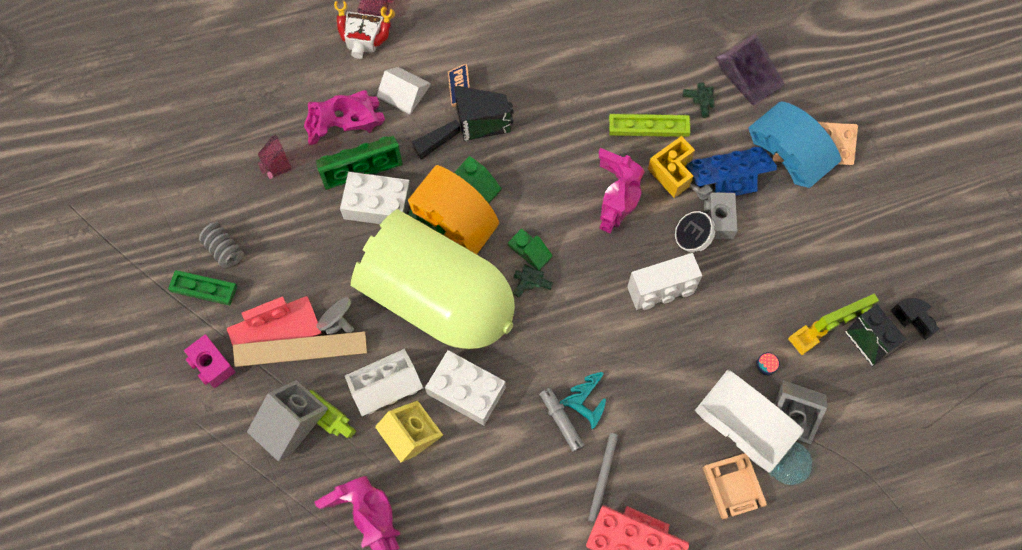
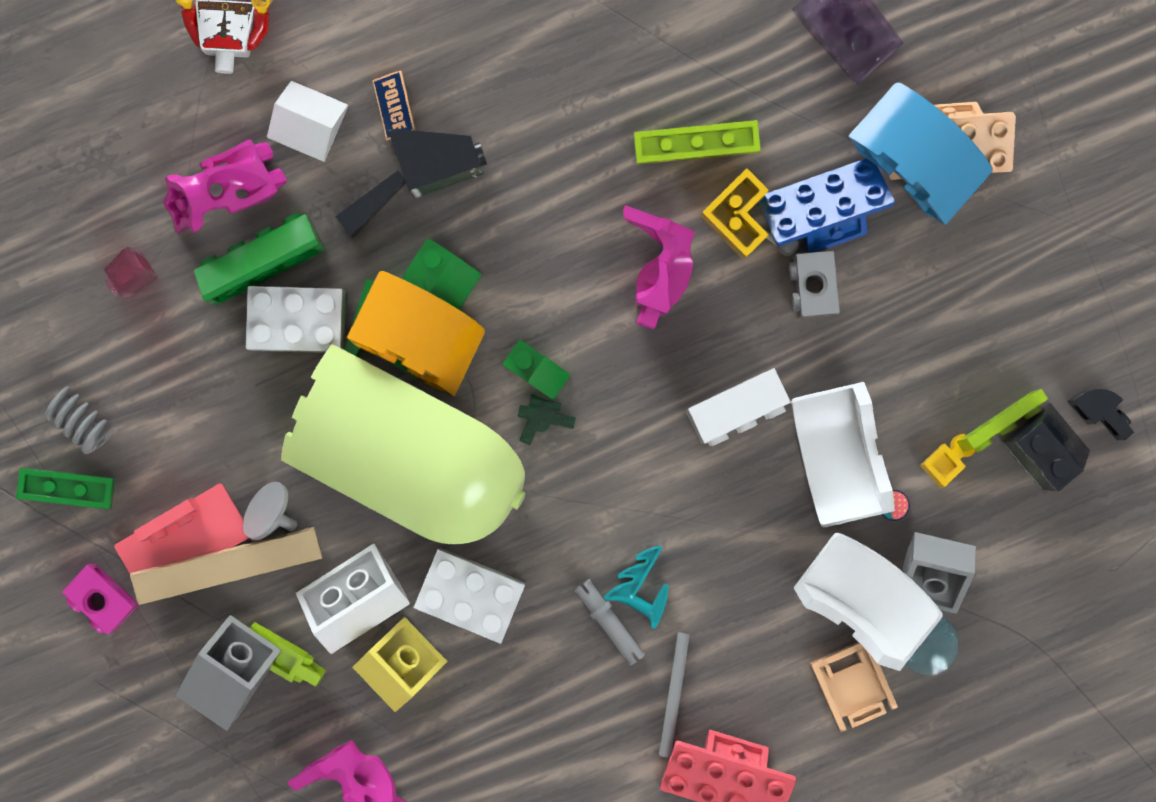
camera: 10 degrees left, 20 degrees up
(695, 232) = (777, 318): black tile -> none
(702, 96) = (775, 80): clear green piece -> none
(732, 323) = (841, 455): none -> white panel

